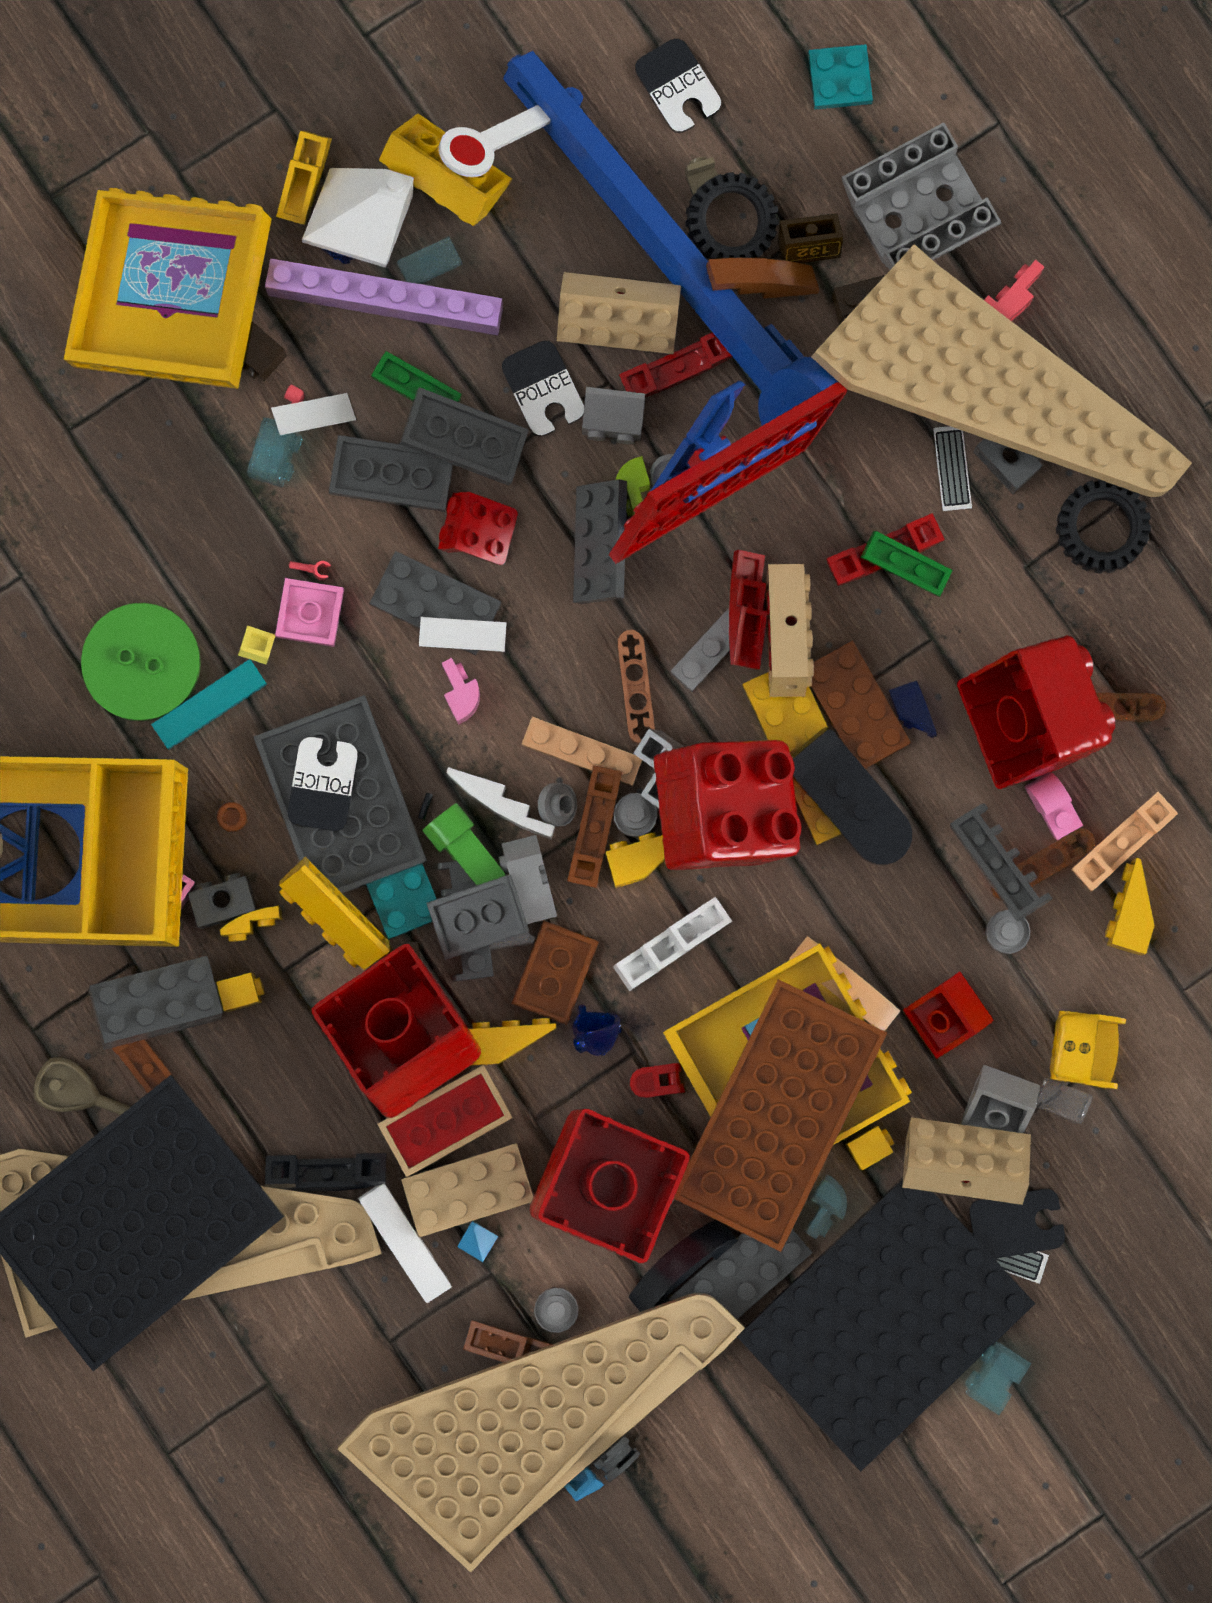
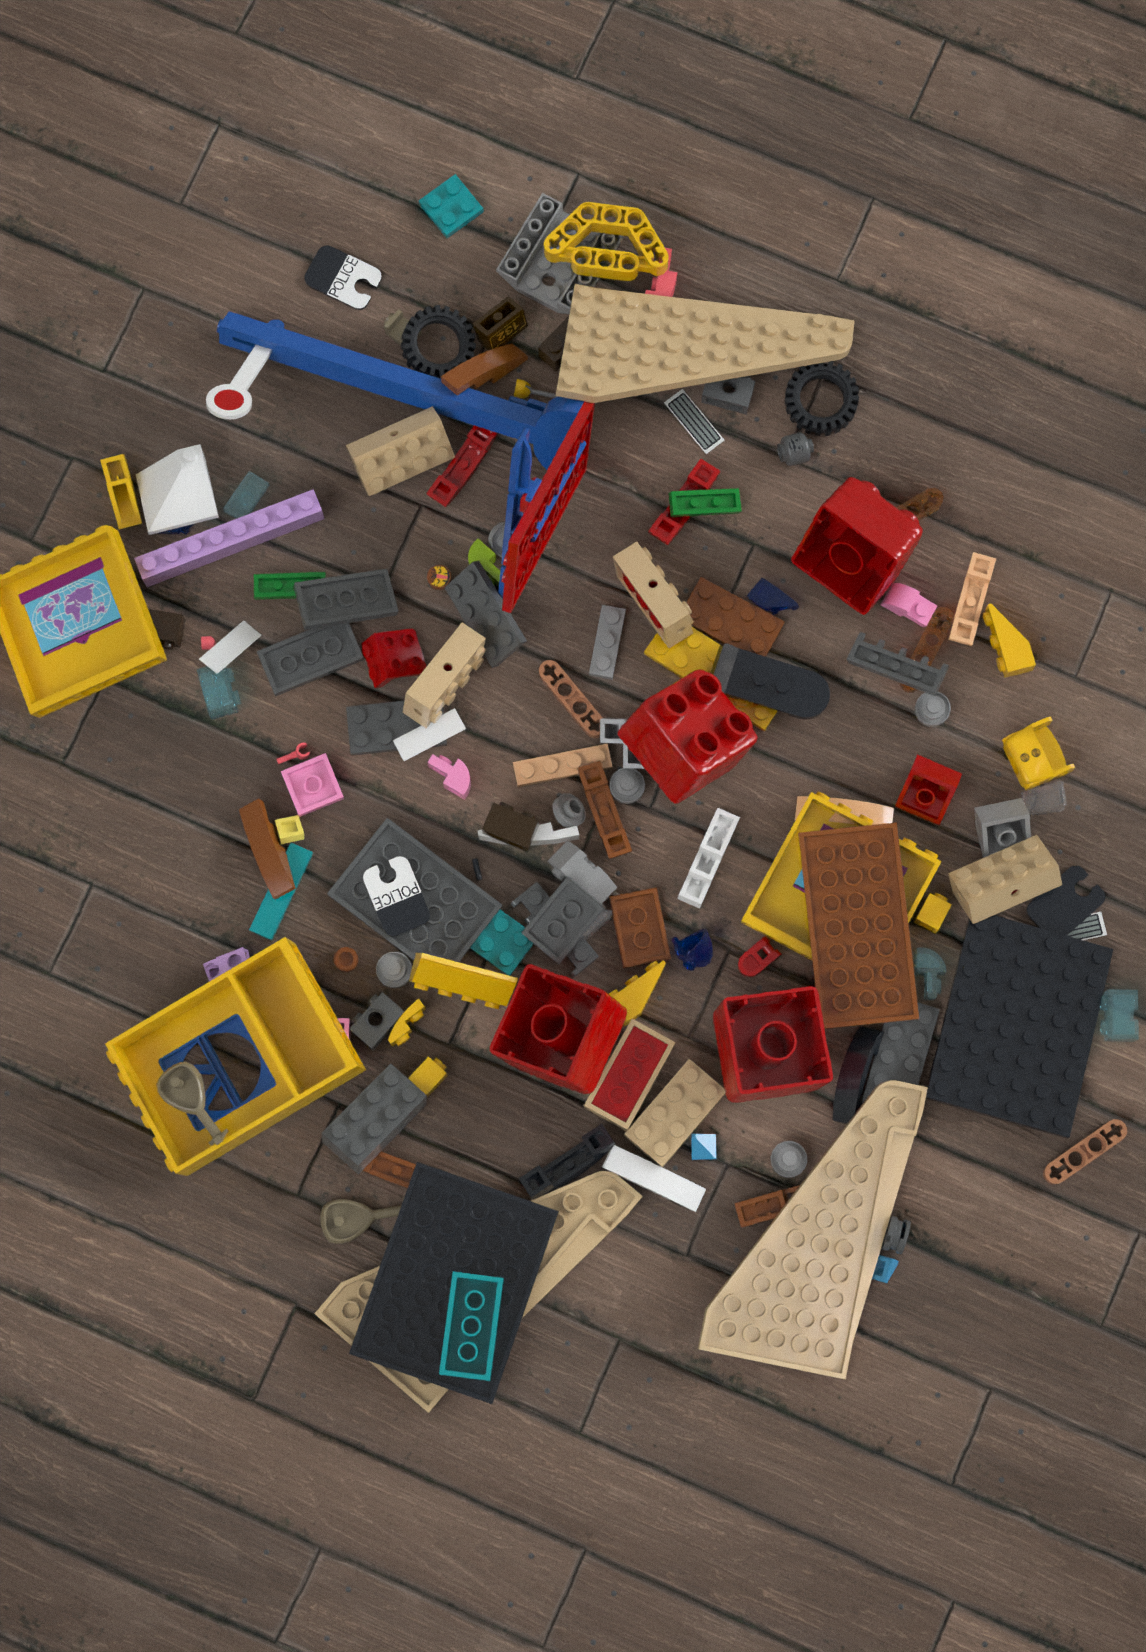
camera: 30 degrees left, 5 degrees down
(106, 746) = (225, 962): none -> lavender leg
(118, 1280) = (471, 1326): none -> teal brick
(140, 661) = (214, 891): bright green plate -> none
(219, 651) = (266, 849): none -> dark orange slope
(273, 858) = (393, 969): none -> light grey plate
(415, 153) = (194, 425): yellow slope -> none
(453, 833) = (512, 875): bright green piece -> none
(483, 785) = (510, 826): none -> dark brown brick
(514, 582) = (444, 676): none -> tan brick
(539, 380) = (372, 532): piece -> none
(578, 471) = (438, 577): none -> tile
(613, 415) = (440, 522): light grey slope -> none
(635, 861) = (647, 816): yellow slope -> none
(746, 610) = (616, 601): red slope -> none
(792, 324) = (523, 390): none -> yellow hinge
(869, 1499) = (1085, 1152): none -> nougat beam
(976, 245) = (583, 227): none -> yellow piece
(1039, 564) = (795, 449): none -> dark grey head

